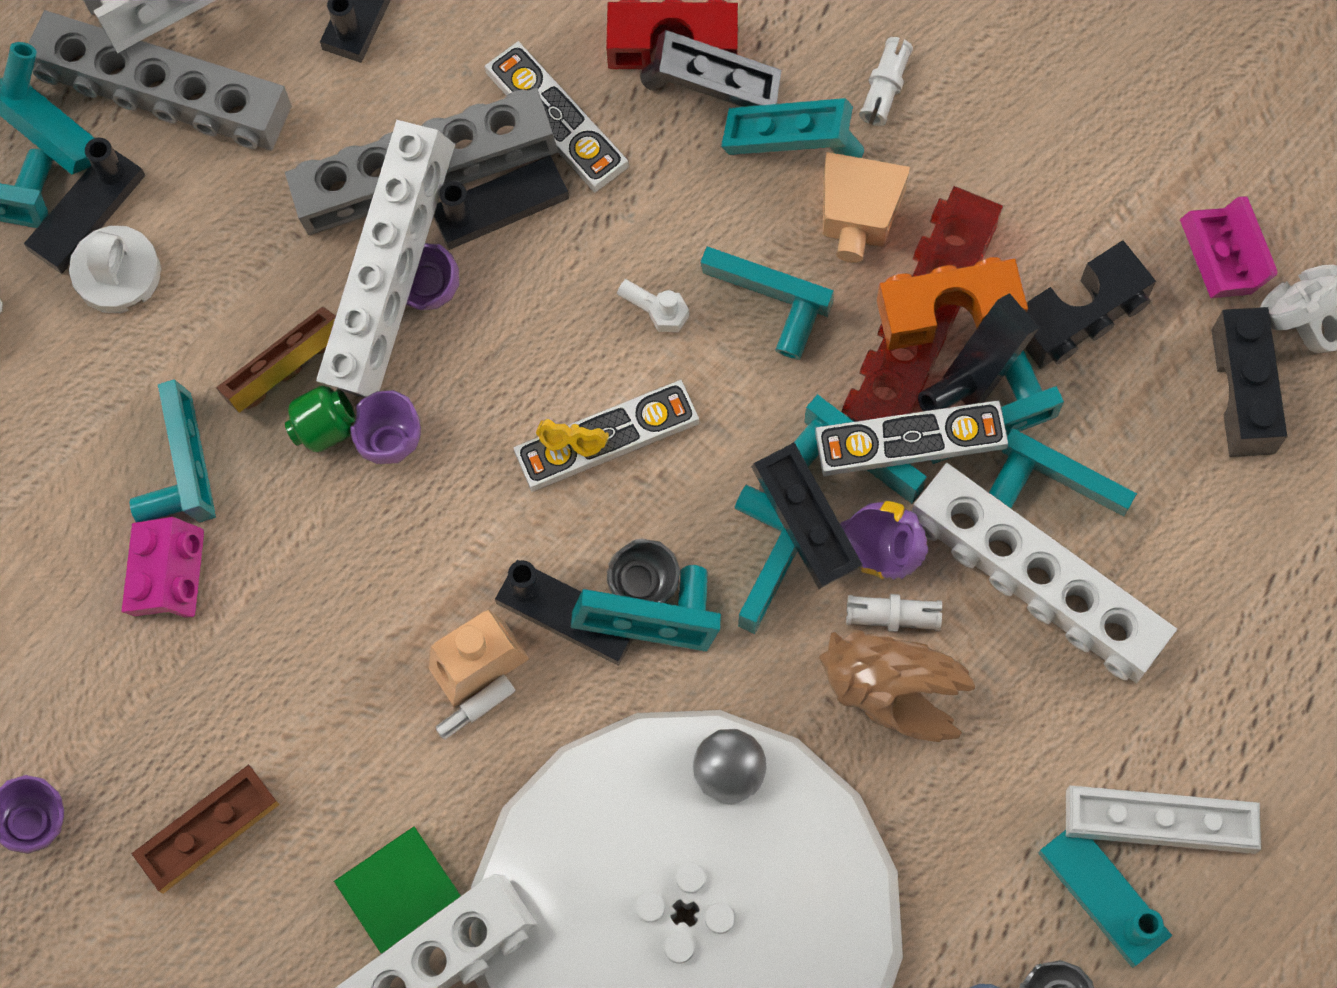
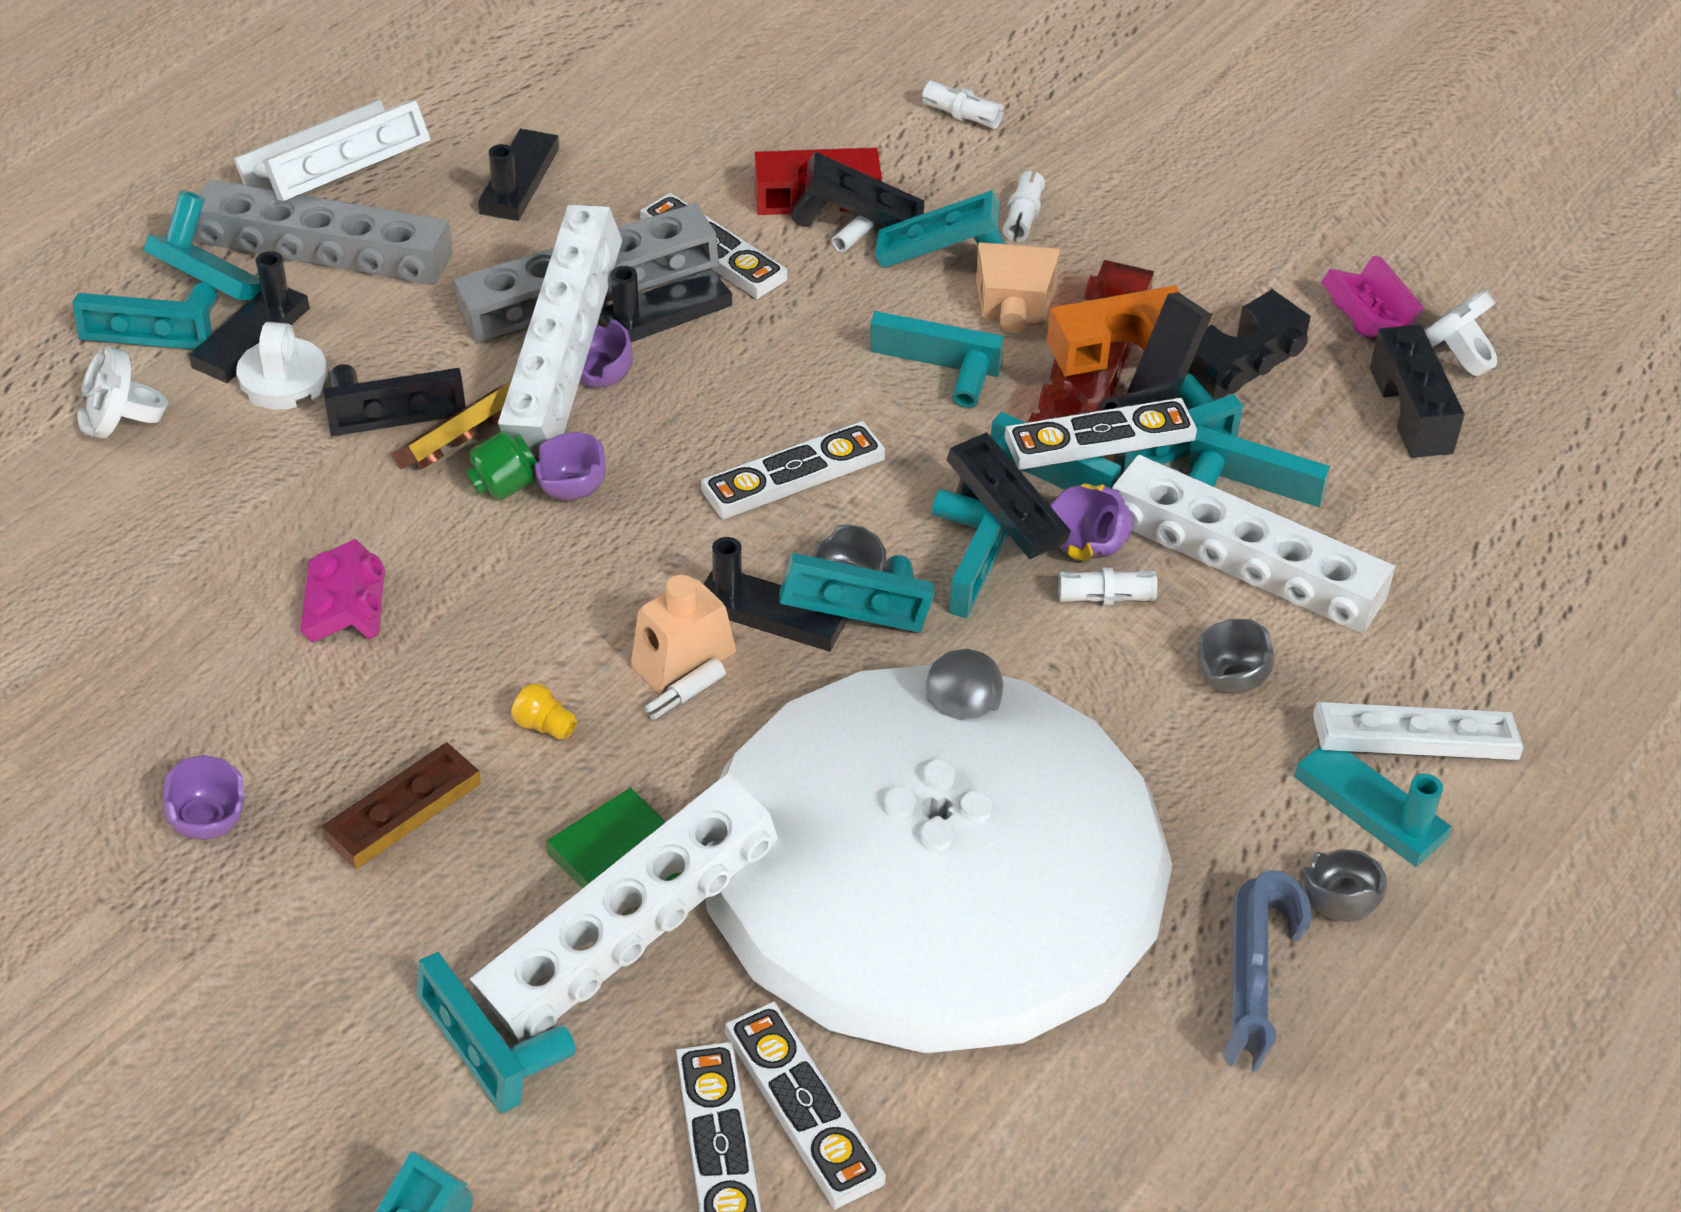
camera: 10 degrees left, 25 degrees down
(187, 329) = (390, 401): none -> black piece
(193, 490) = (371, 527): teal piece -> none
(340, 729) = (539, 710): none -> yellow piece
(582, 440) = (747, 461): yellow piece -> none
(666, 310) = (840, 372): white piece -> none
(698, 111) = (851, 233): none -> white pin
(888, 679) = (1102, 623): medium nougat head -> none
(1002, 720) = (1235, 655): none -> flat silver hair

